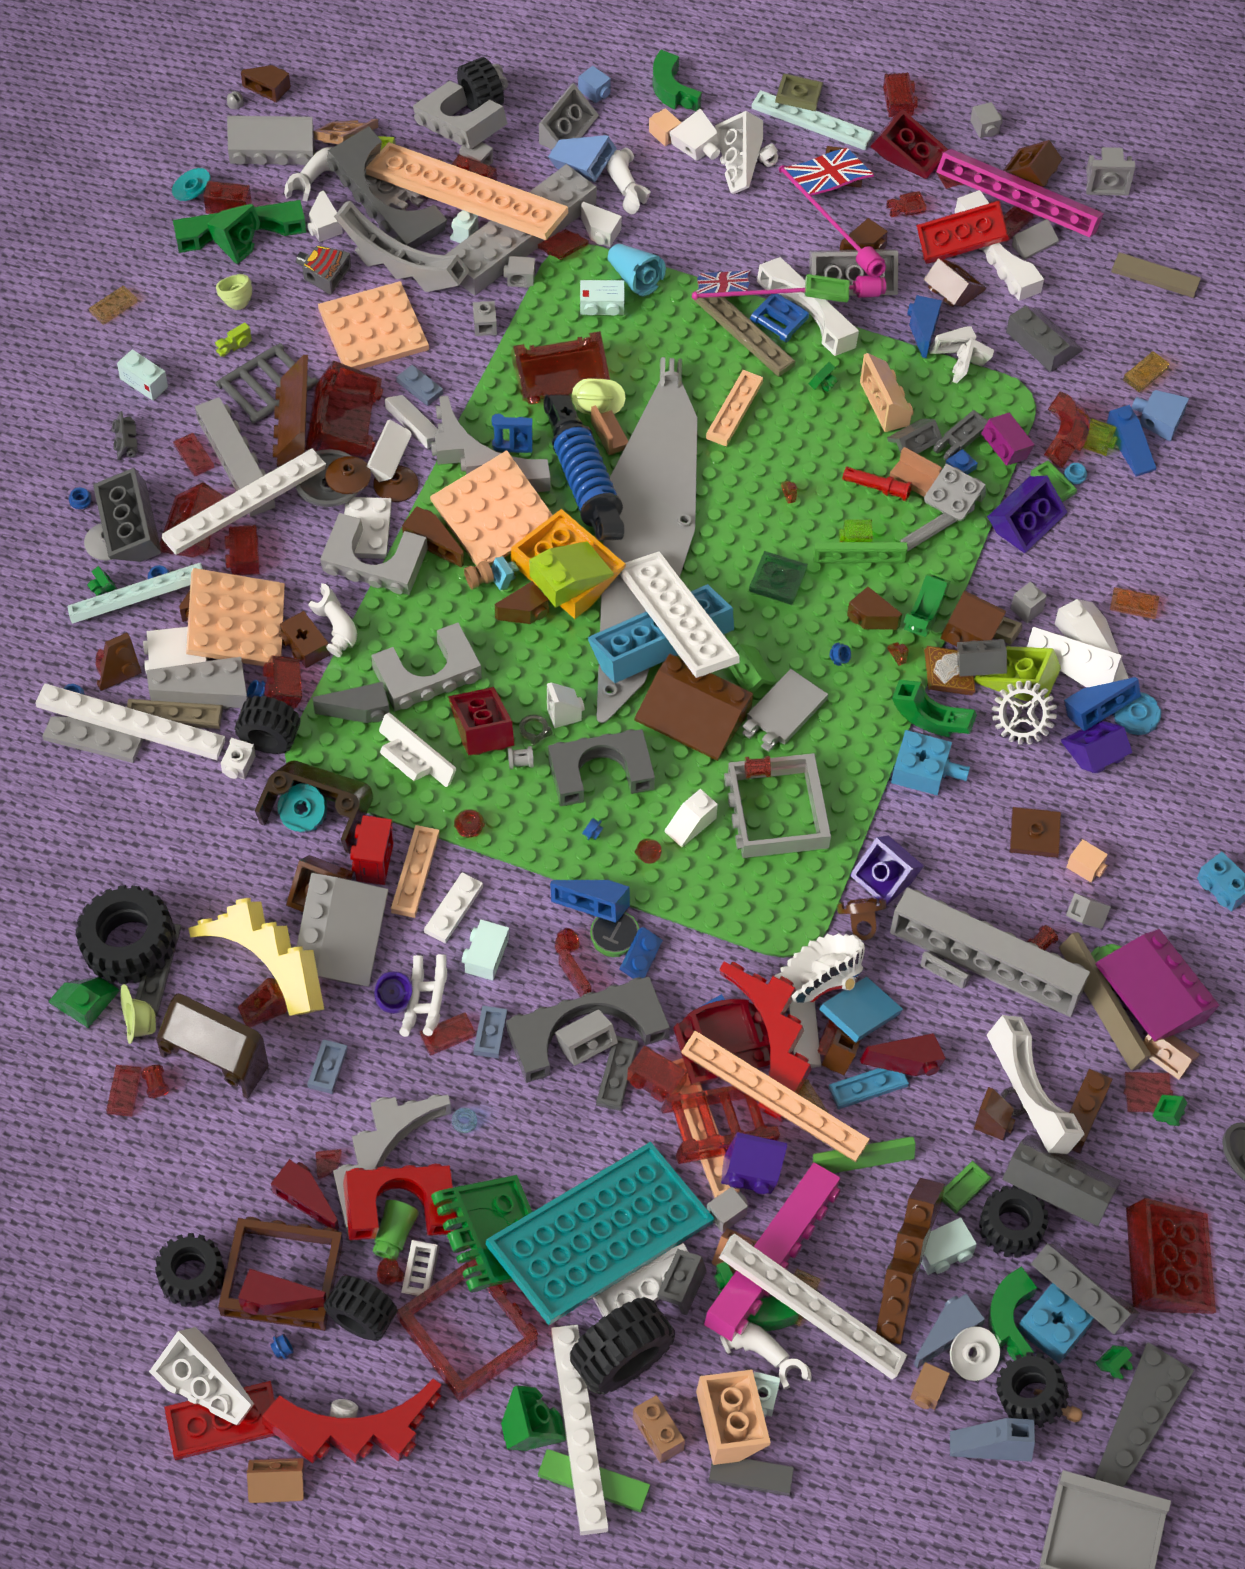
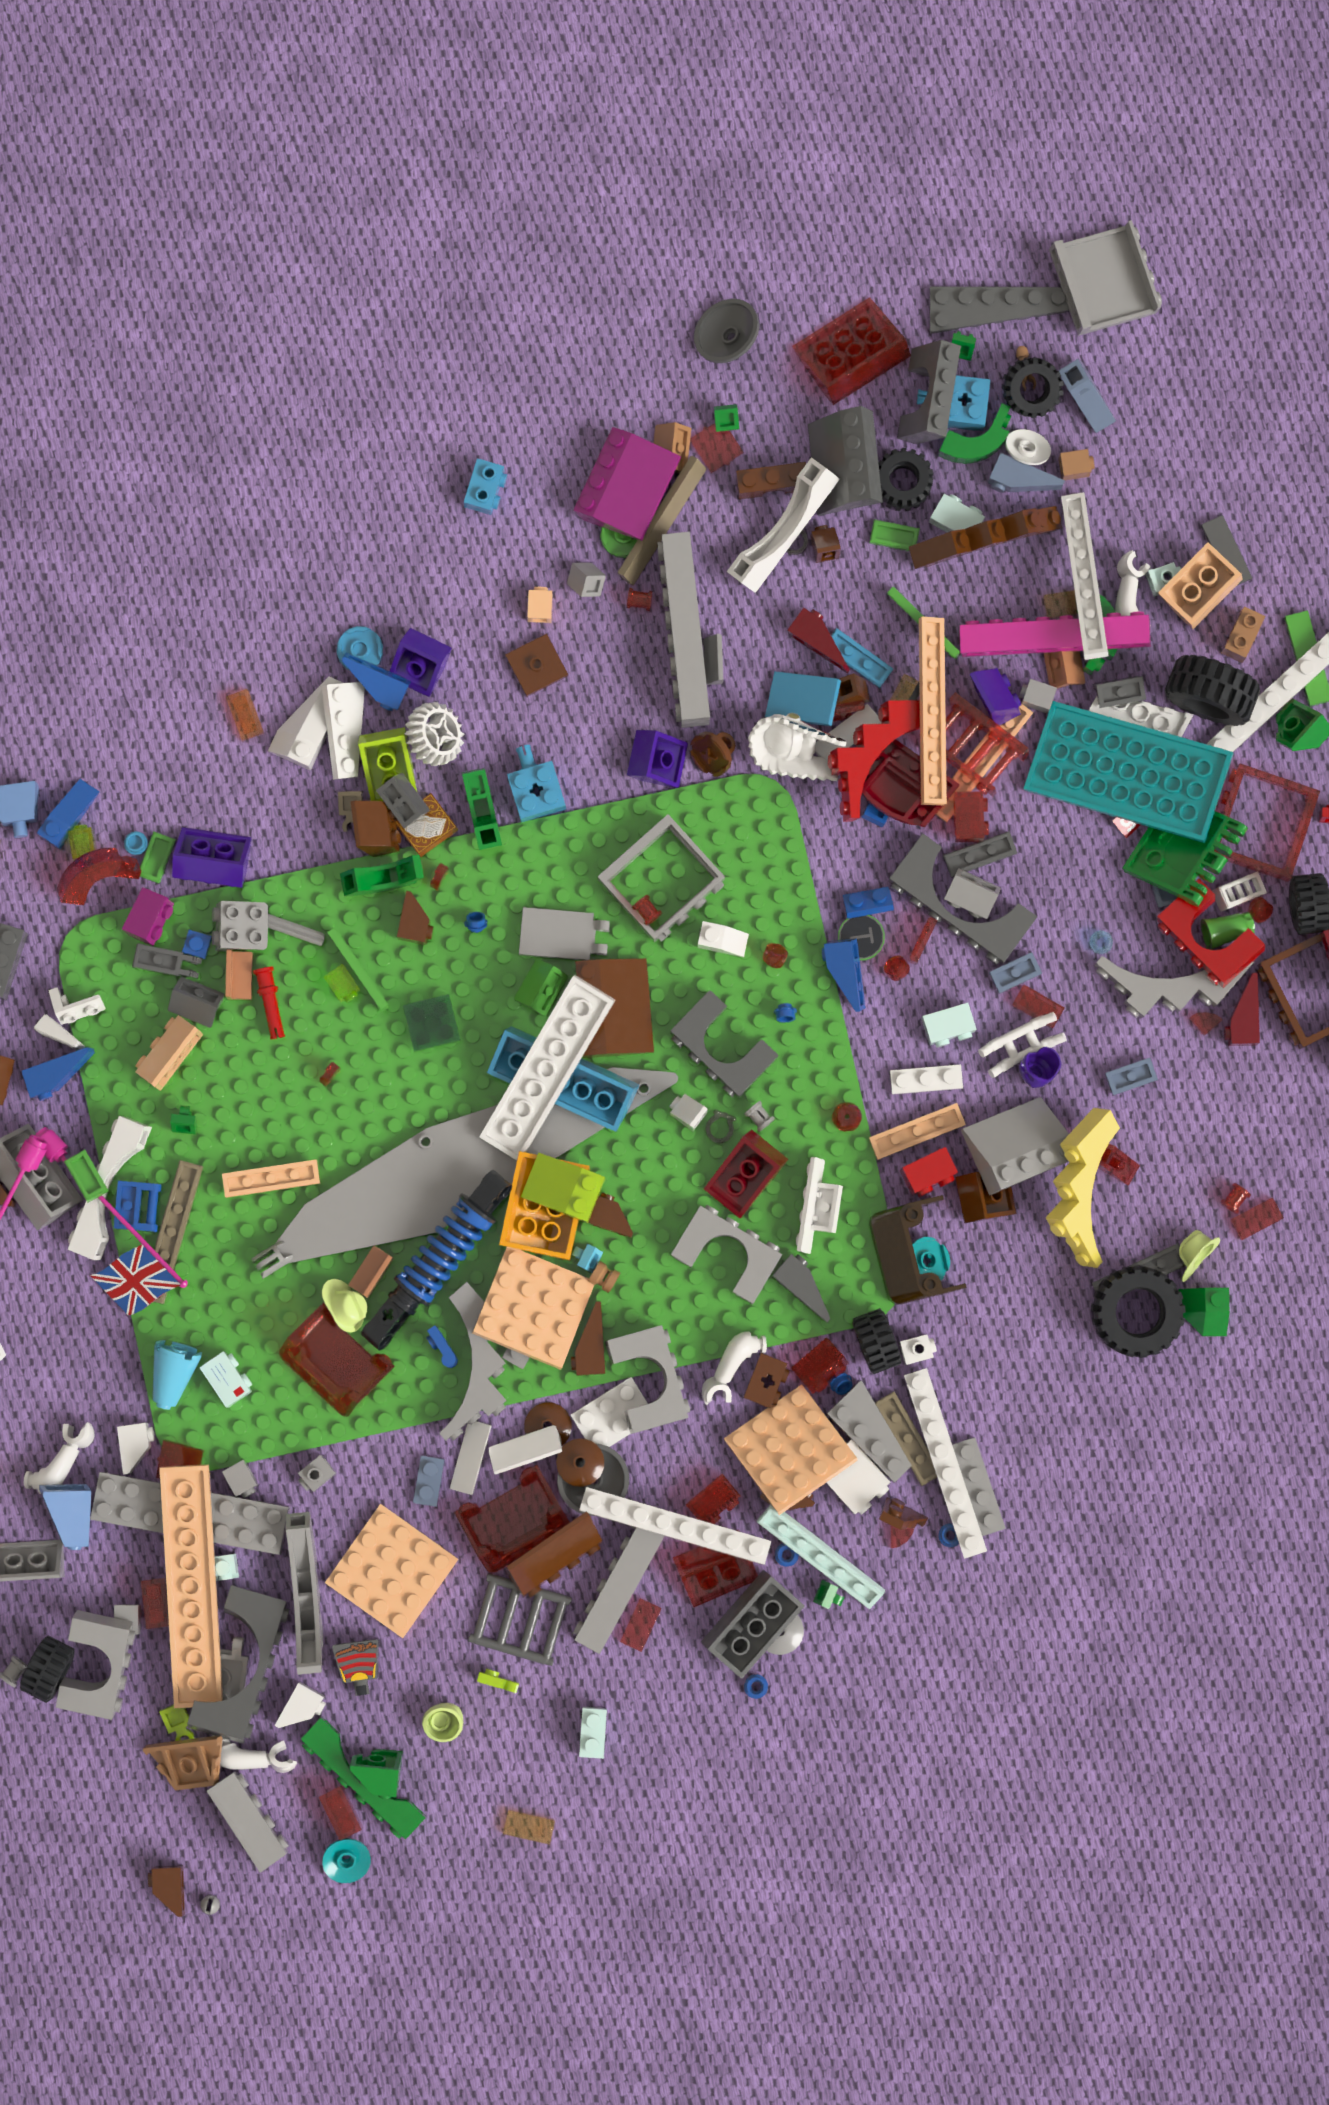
camera: 125 degrees left, 25 degrees up
(123, 443) = (659, 1707): dark grey hinge -> none
(214, 1039) = (1189, 1167): windscreen -> none
(1028, 602) = (310, 799): light grey brick -> none

